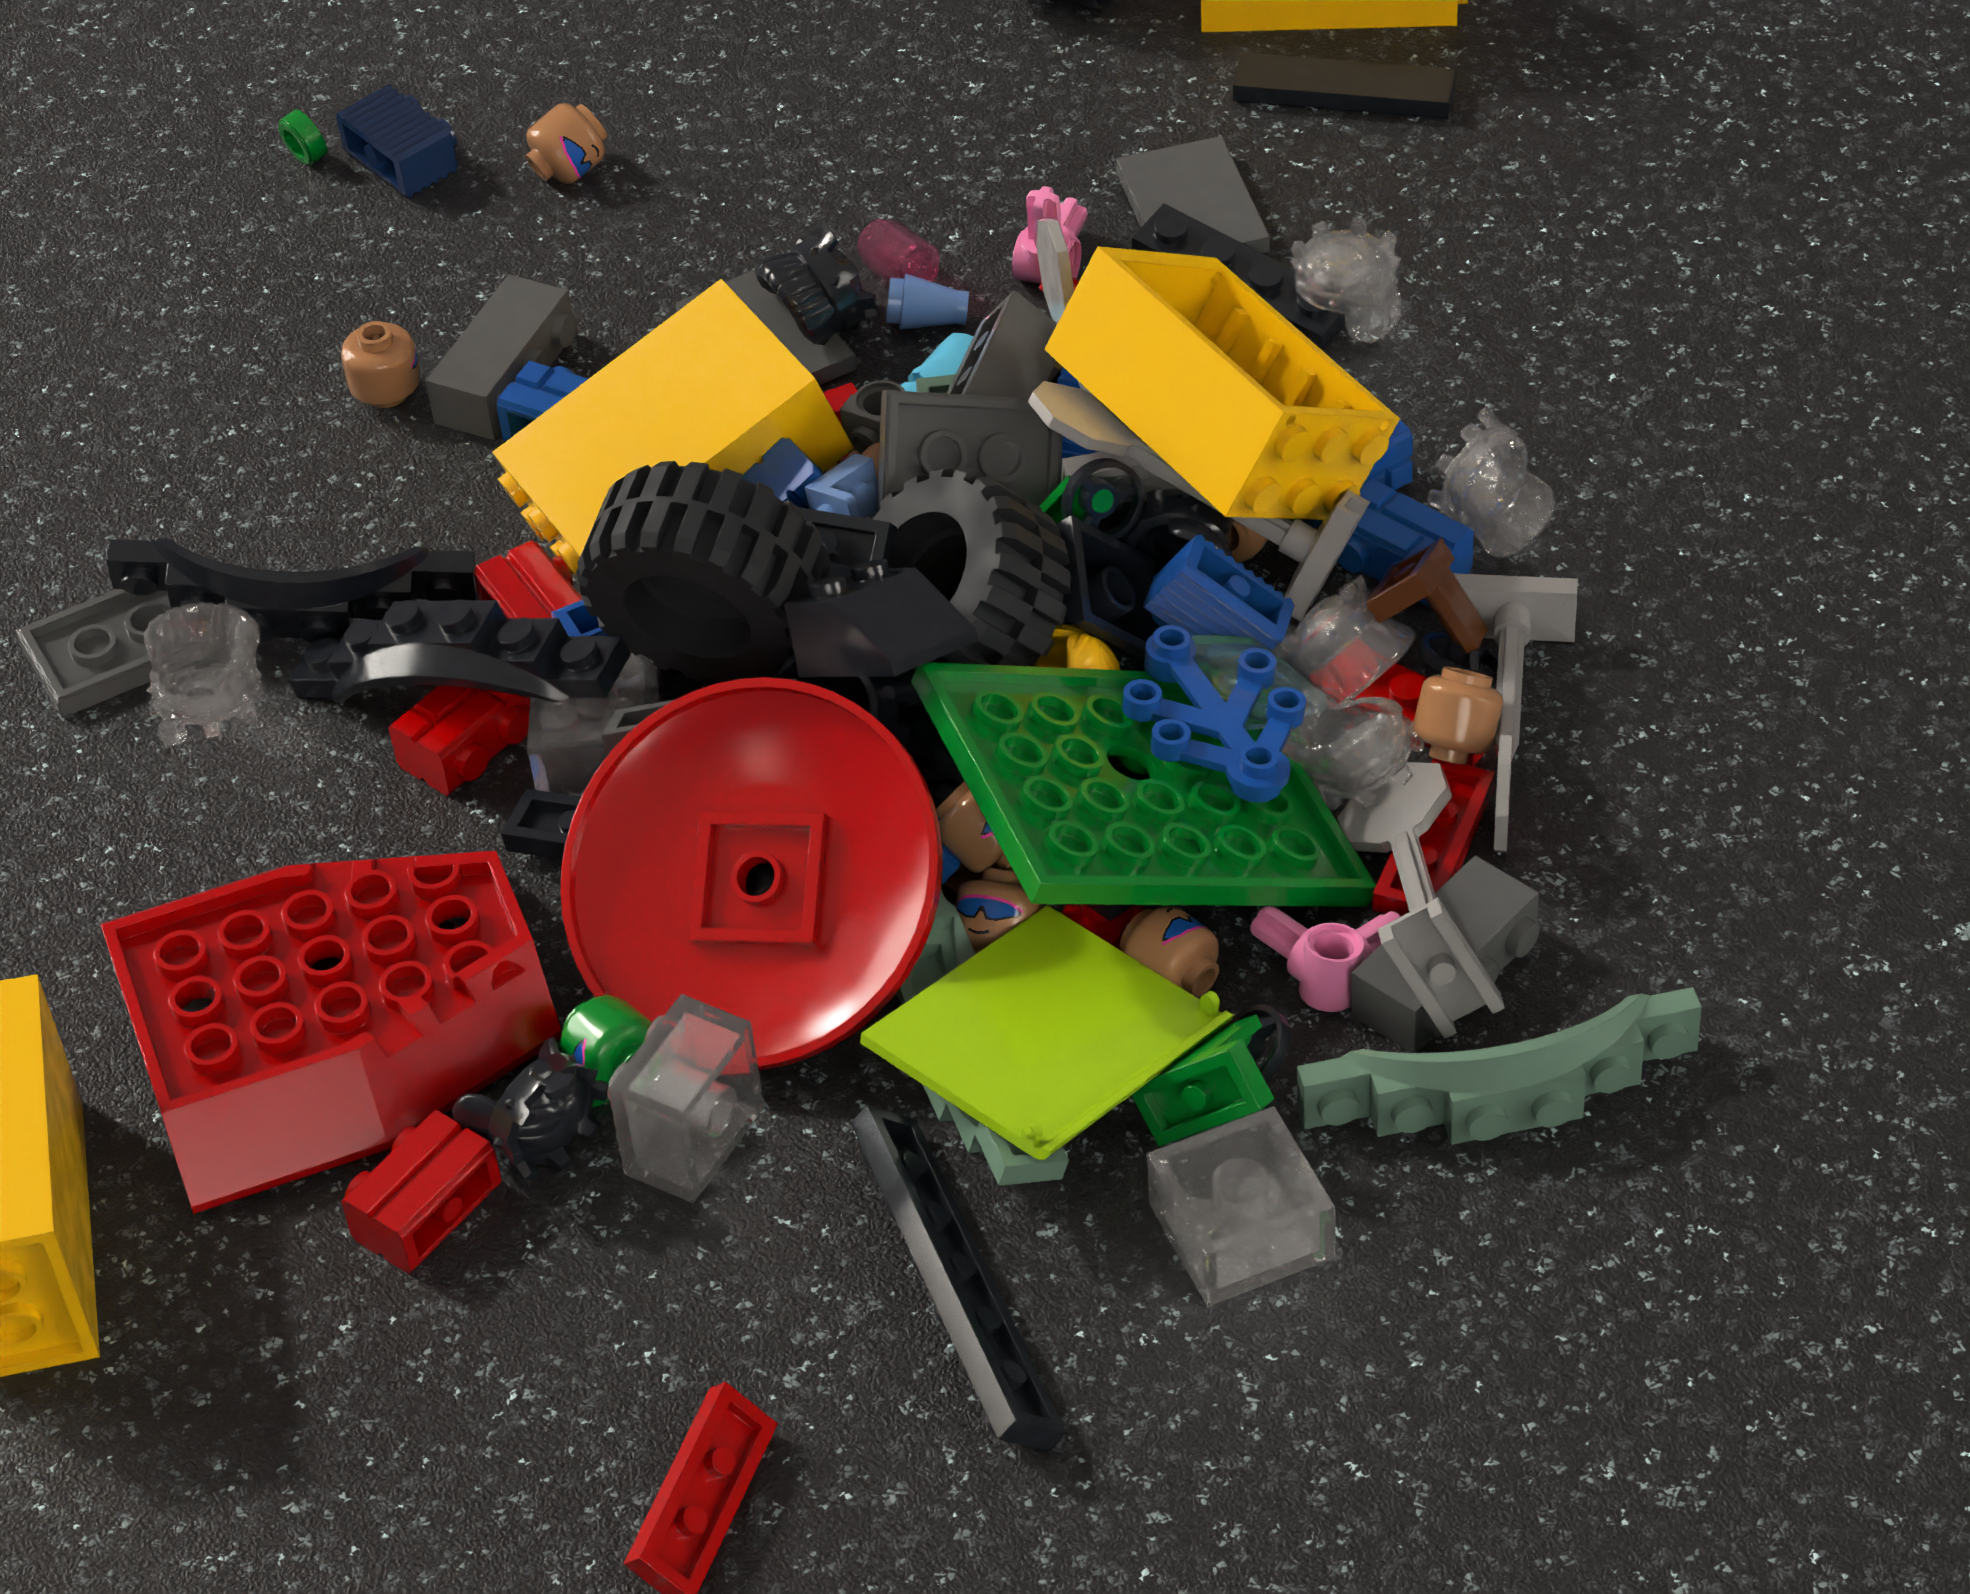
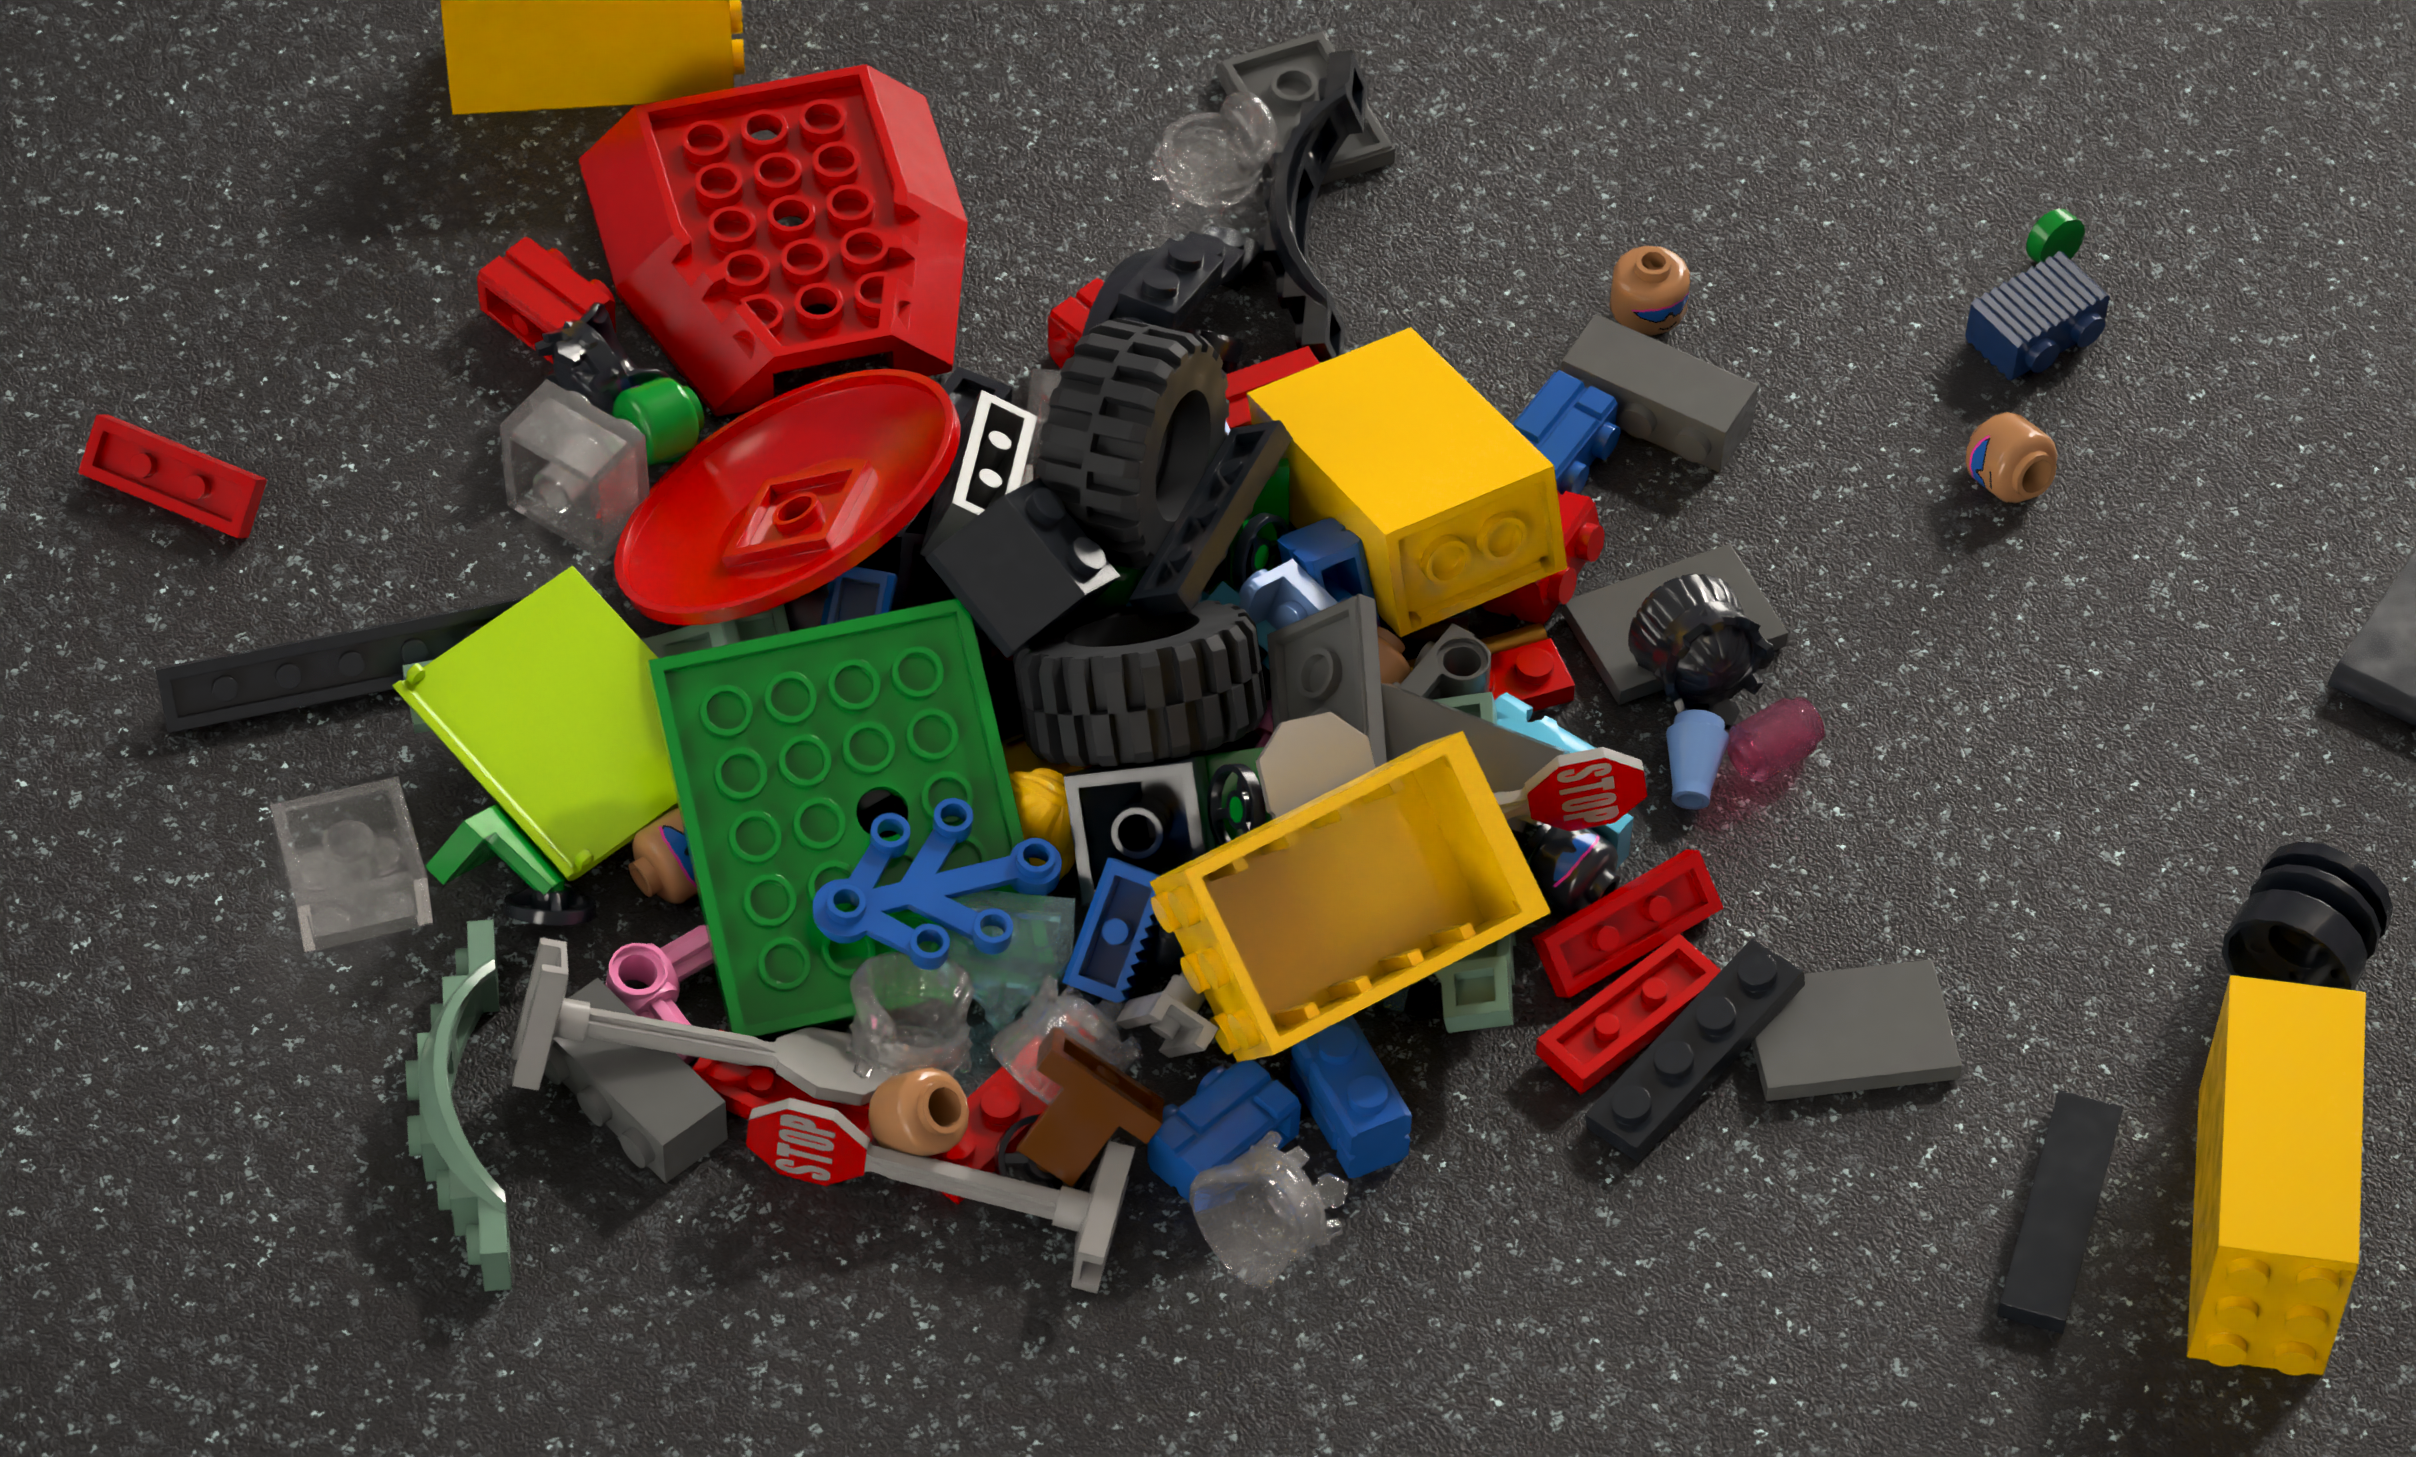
camera: 90 degrees right, 5 degrees up
(1071, 218) = (1762, 873): bright pink axle -> none
(1351, 276) = (1651, 1135): clear hair -> none

